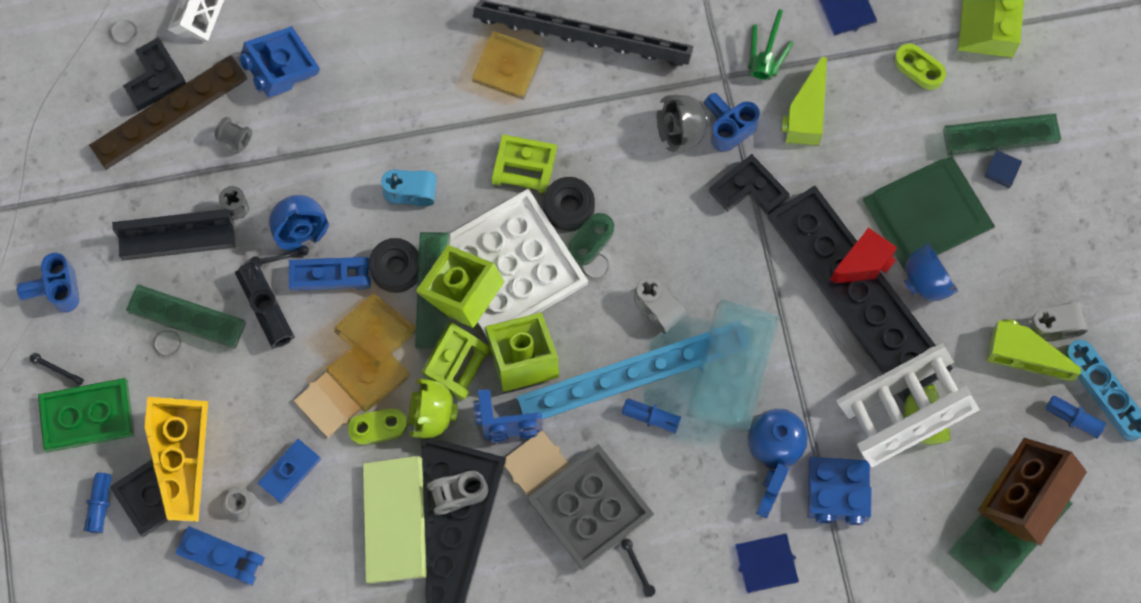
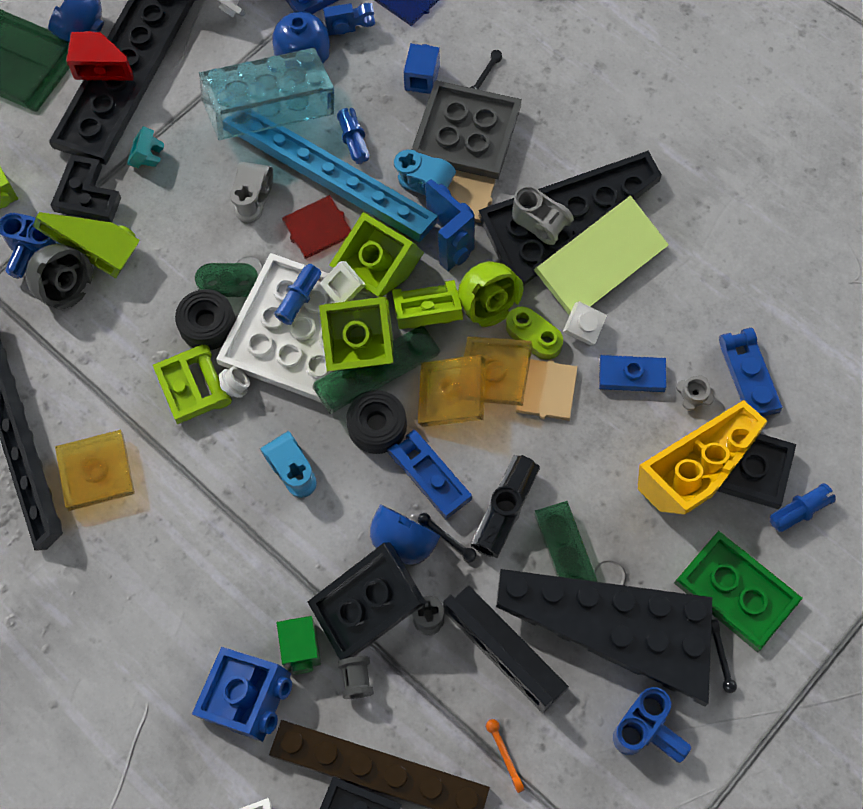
camera: 125 degrees left, 5 degrees down
(111, 322) = (633, 627): none -> black wing
(137, 196) = (493, 727): none -> orange hinge
(269, 165) = (366, 601): none -> black plate
(282, 113) = (298, 644): none -> green brick
(352, 464) = (585, 323): none -> white plate
(499, 196) = (234, 382): none -> white plate
(513, 306) = (342, 283): none -> white plate
(531, 272) = (297, 294): none -> blue axle
(565, 441) = (420, 169): none -> dark azure piece
(592, 336) = (317, 226): none -> clear red piece
(676, 514) = (421, 68): none -> blue brick
(689, 160) = (101, 241): none -> lime slope
(759, 249) = (142, 147): none -> teal tile

